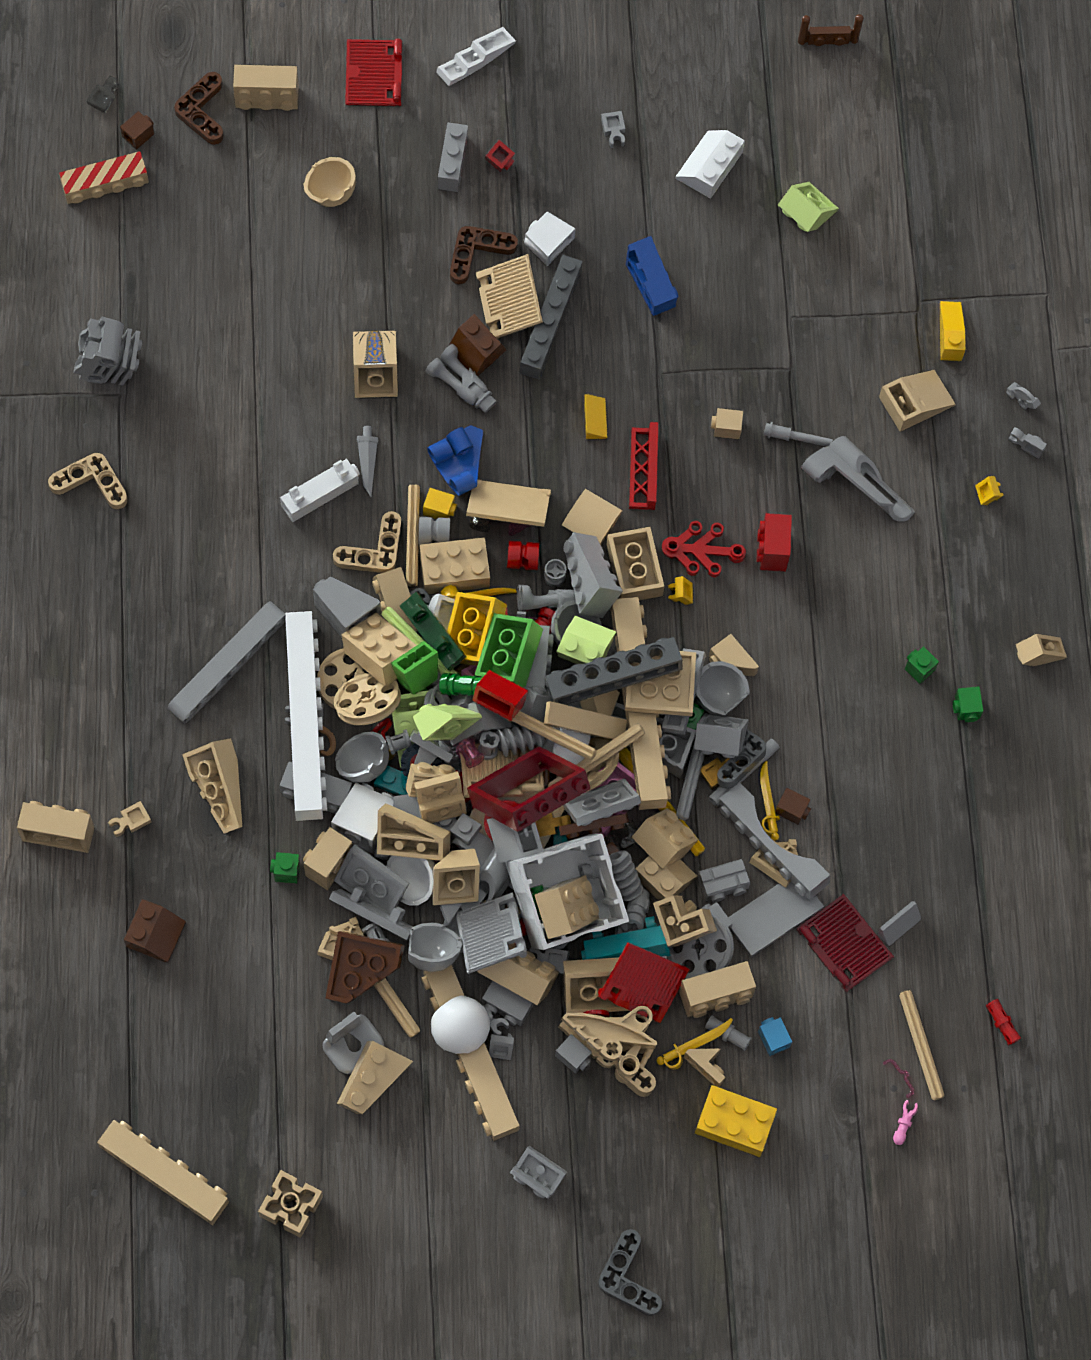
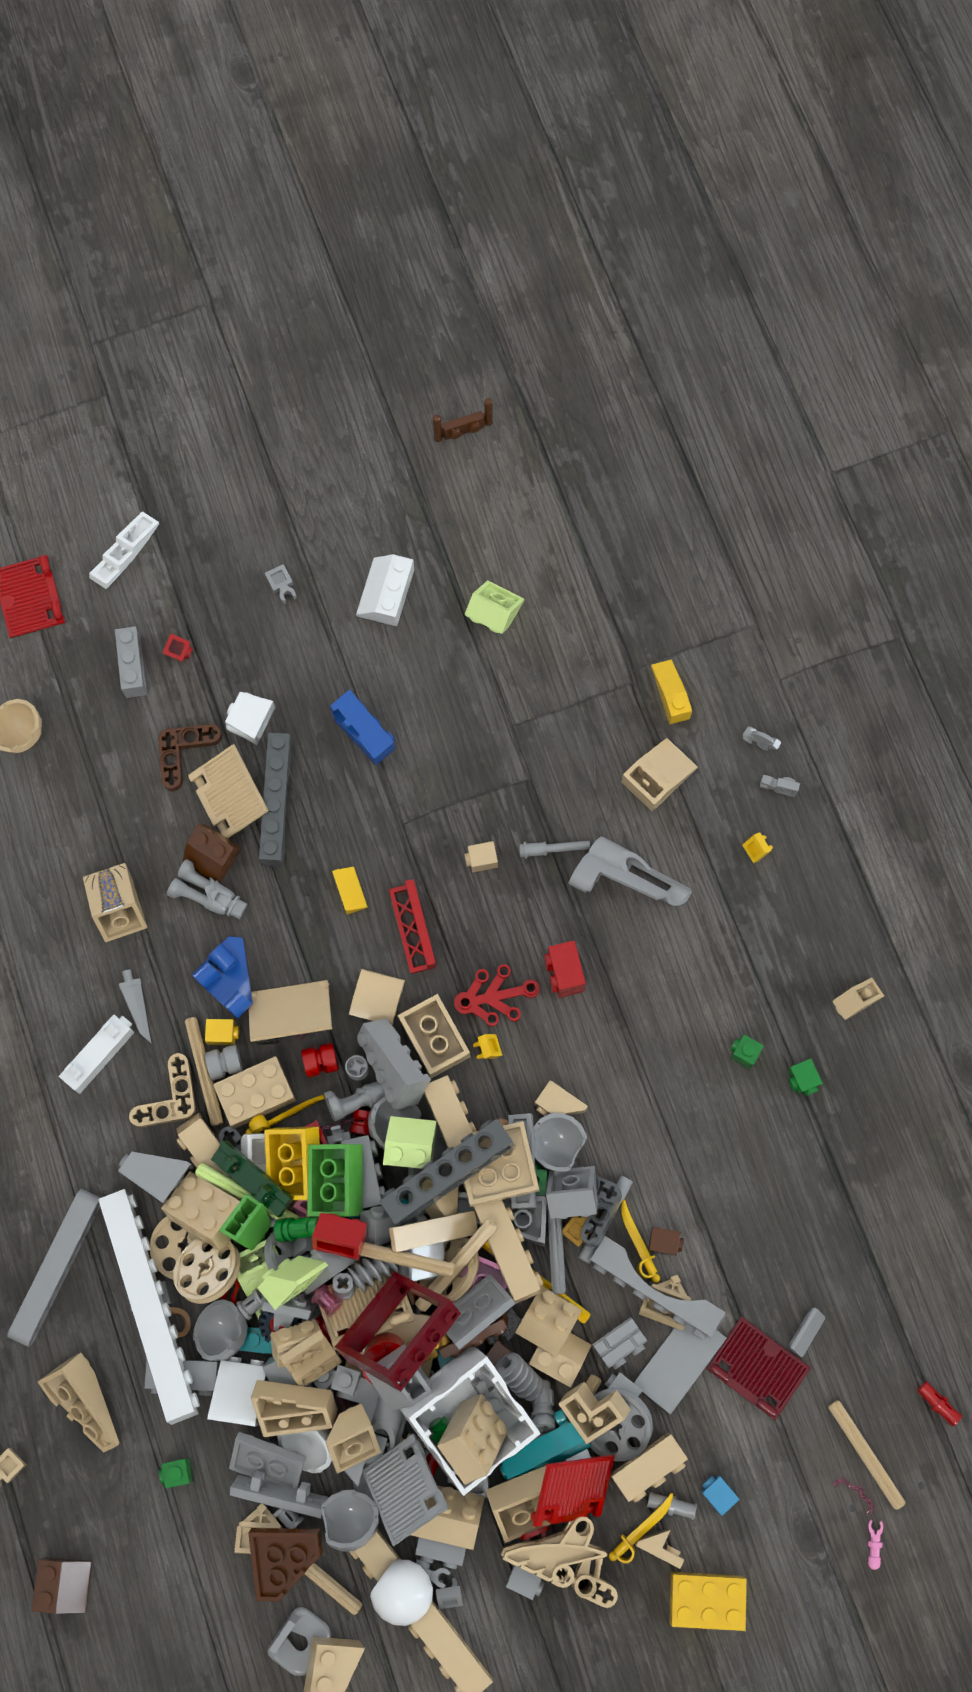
camera: 10 degrees left, 5 degrees up
(326, 858) = (214, 1453): tan brick -> none

